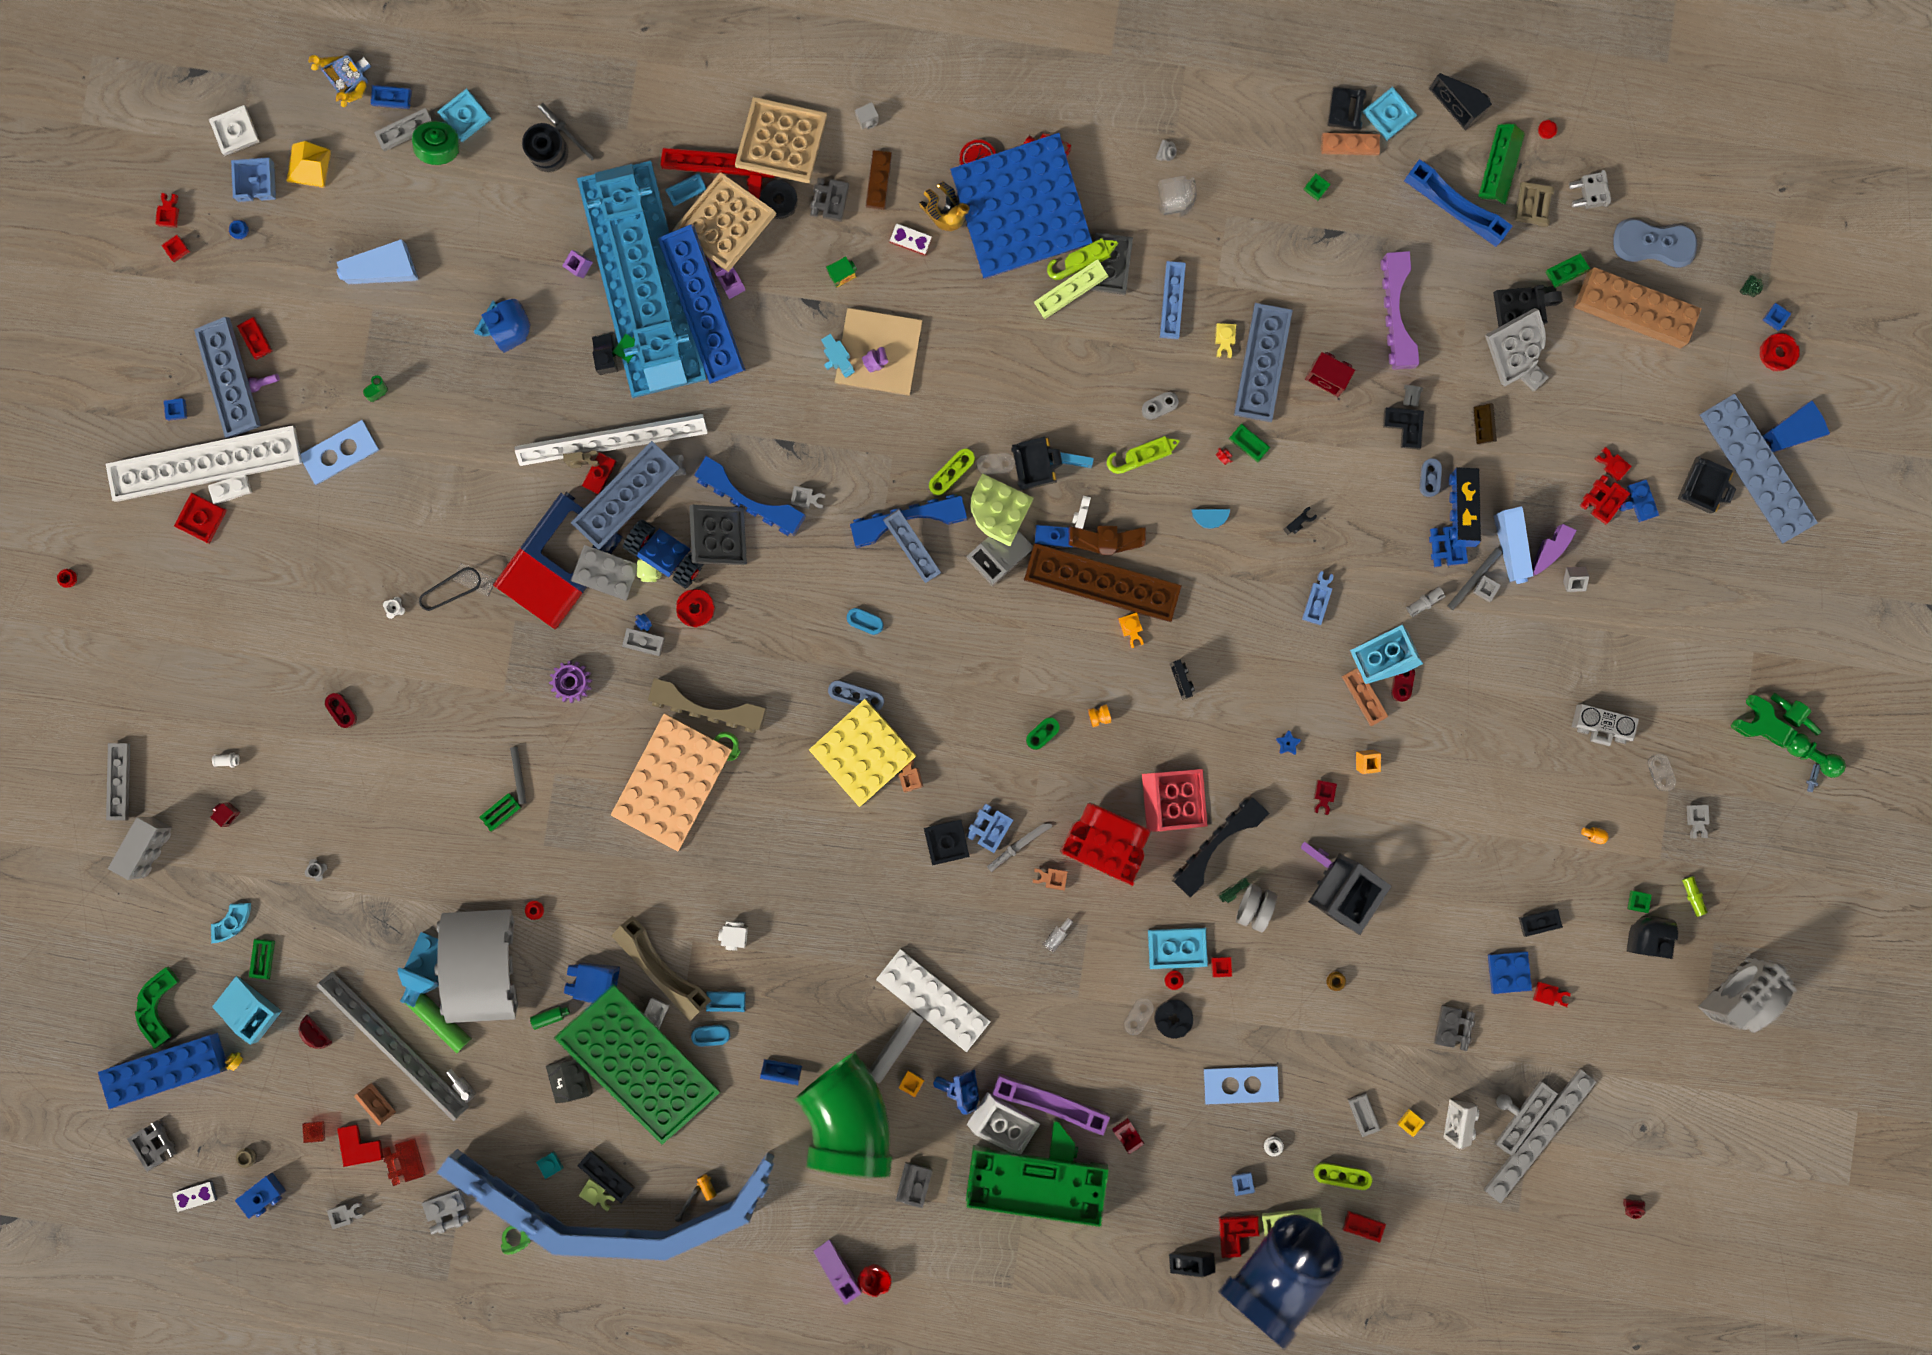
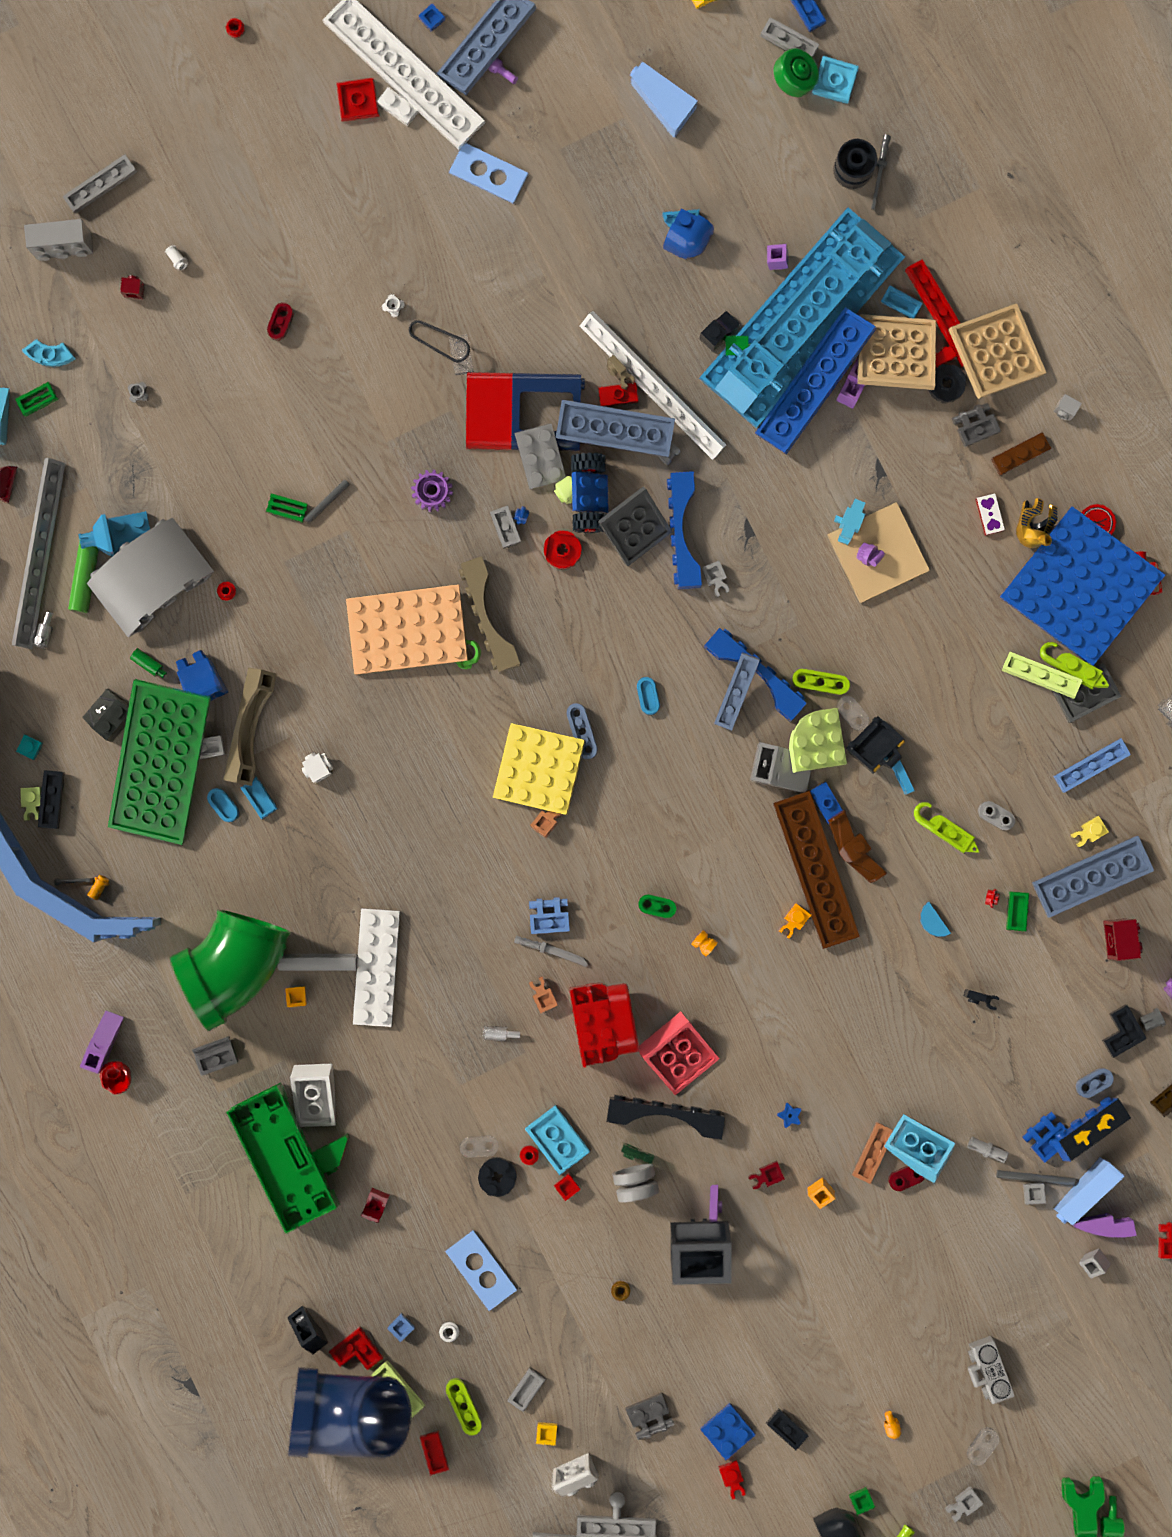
camera: 55 degrees right, 0 degrees up
(254, 338) = (533, 40): red plate -> none
(376, 389) = (560, 166): green piece -> none
(781, 1072) = (232, 883): blue plate -> none
(841, 271) = (923, 476): green brick -> none
(946, 842) = (513, 888): black plate -> none
(963, 1089) = (319, 1041): blue piece -> none
(1049, 1102) = (354, 1106): medium lavender arch -> none
(1079, 518) = (856, 813): white plate -> none
(1184, 686) = (787, 984): black plate -> none
(1318, 600) = (926, 1059): medium blue plate -> none

